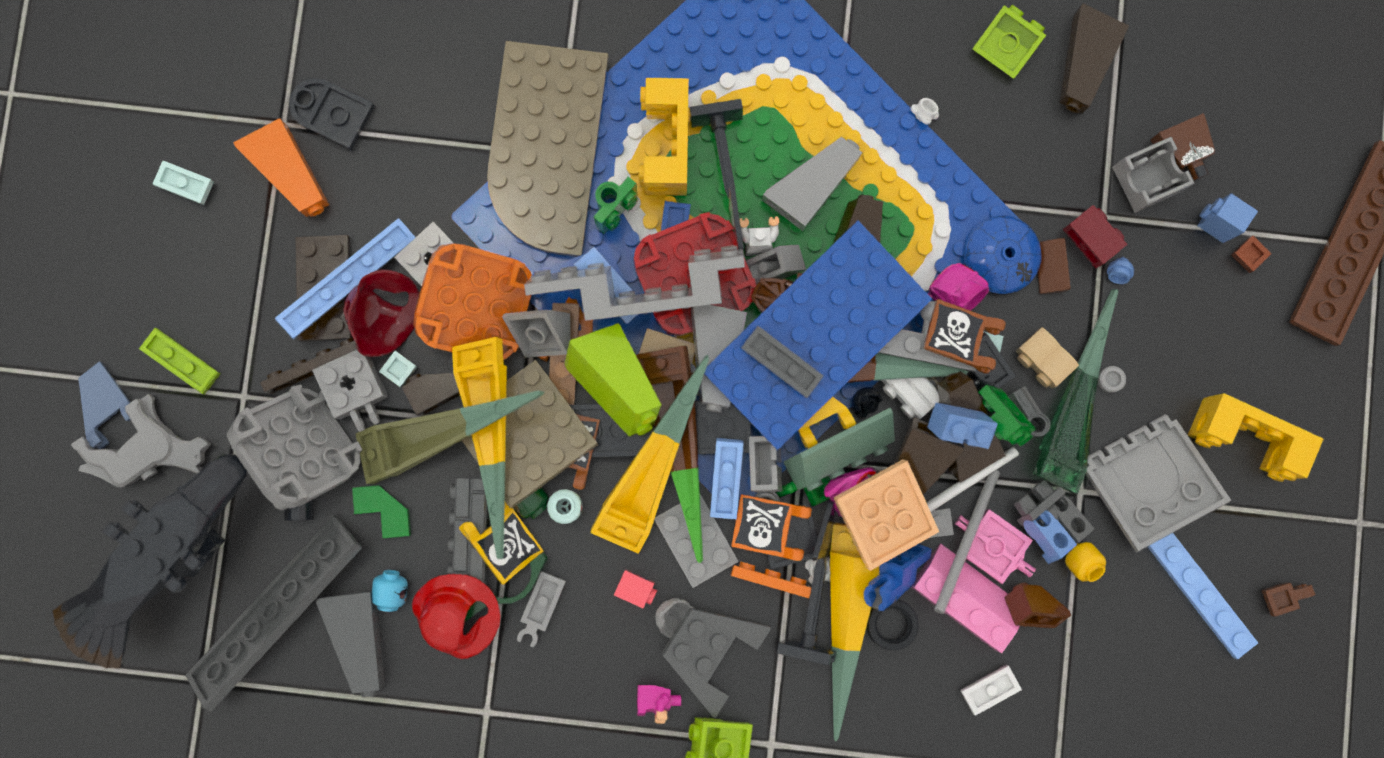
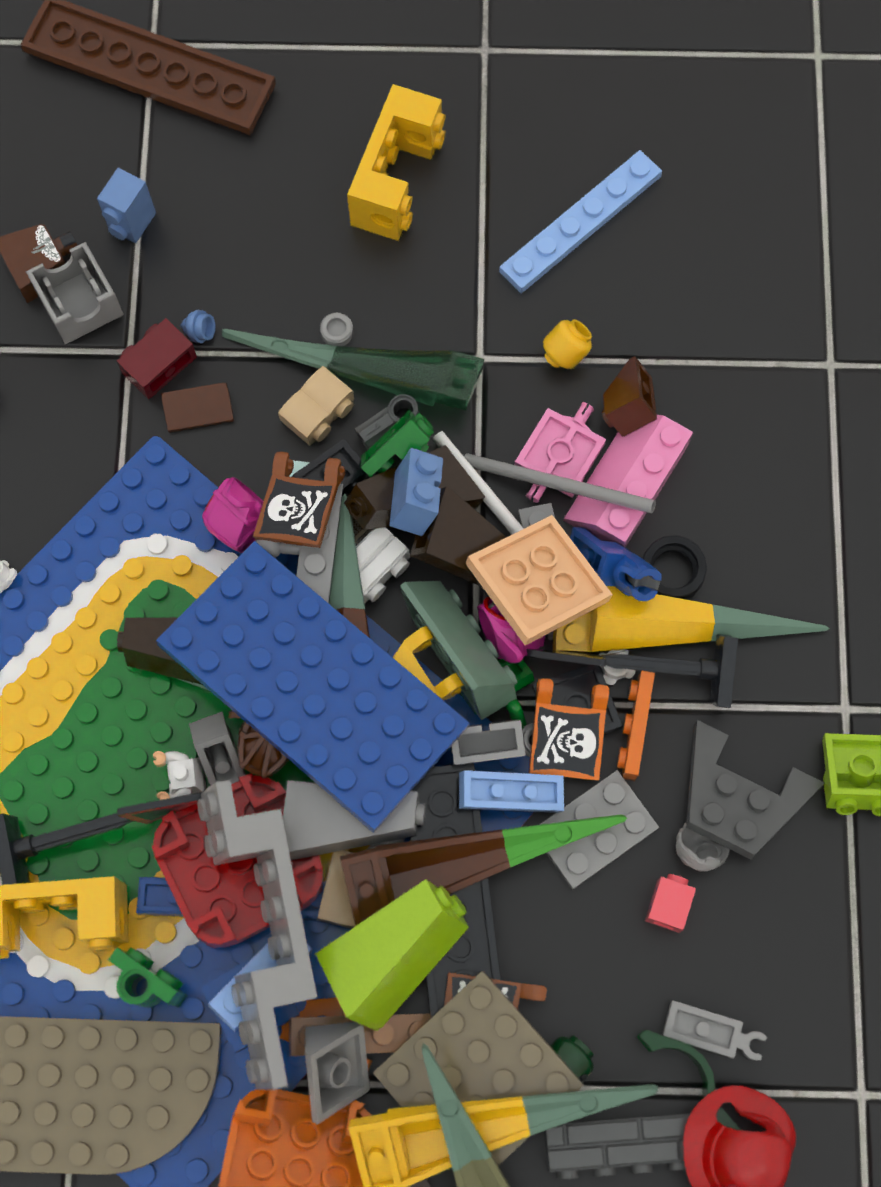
camera: 90 degrees left, 10 degrees down
(519, 545) = (636, 1067): flag -> none
(555, 506) = (583, 1004): light aqua head -> none
(634, 501) = (555, 914): yellow plate -> none
(656, 700) = (813, 860): dark pink piece -> none
(782, 362) = (353, 723): dark grey plate -> none
(808, 187) = (109, 716): light grey slope -> none
(866, 401) = (390, 623): black plate -> none
(986, 253) = (179, 484): blue dish -> none
(990, 690) = (738, 445): white plate -> none
(1052, 521) = (522, 385): dark grey hips -> none
(1154, 482) = (460, 272): light grey hinge -> none
(1251, 254) = (169, 179): copper plate -> none
(1284, 598) = (581, 123): reddish brown plate -> none

